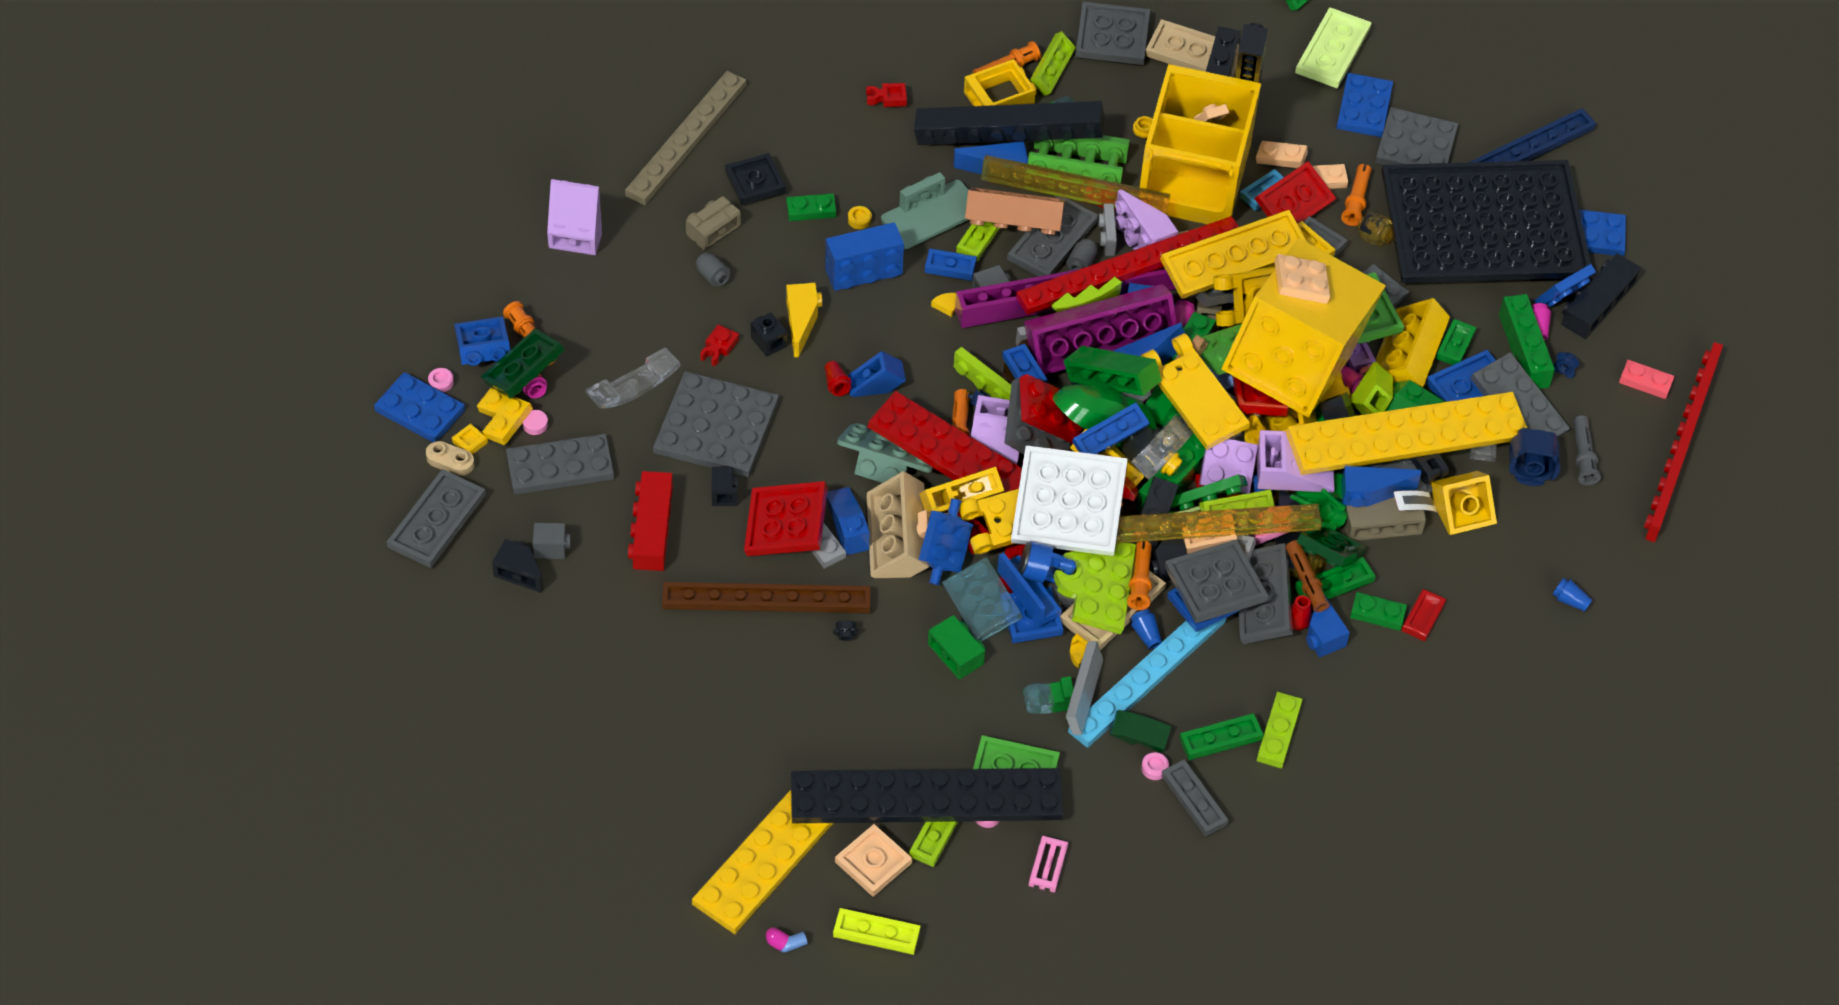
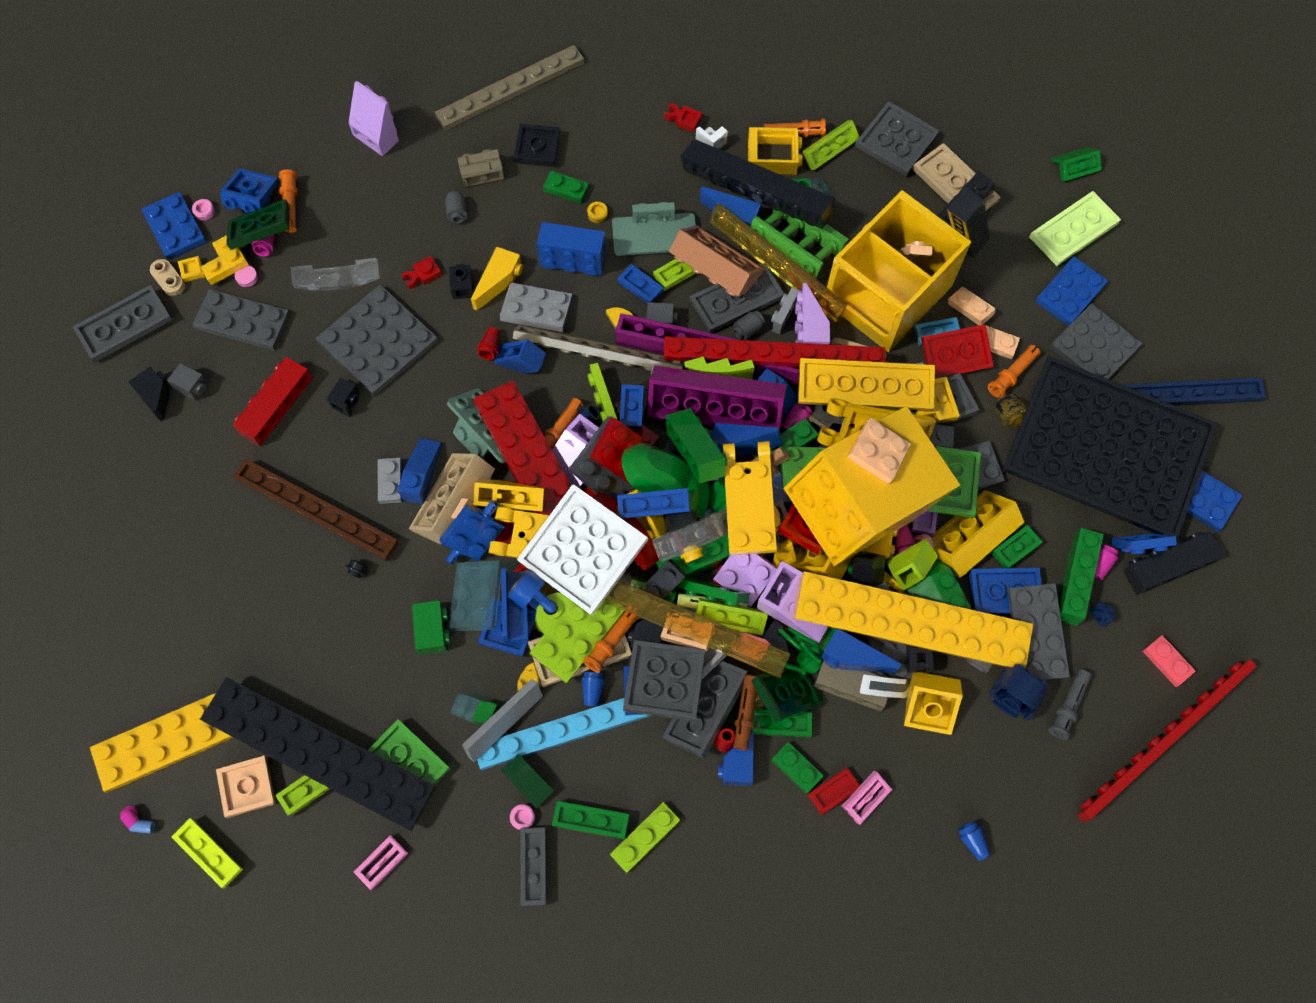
camera: 30 degrees right, 15 degrees up
(786, 518) = (369, 449): red plate -> none
(859, 327) = (536, 307): none -> light grey plate
(936, 101) = (711, 137): none -> white panel
(939, 341) = (592, 348): none -> dark tan plate
(1452, 603) = (864, 794): none -> bright pink tile

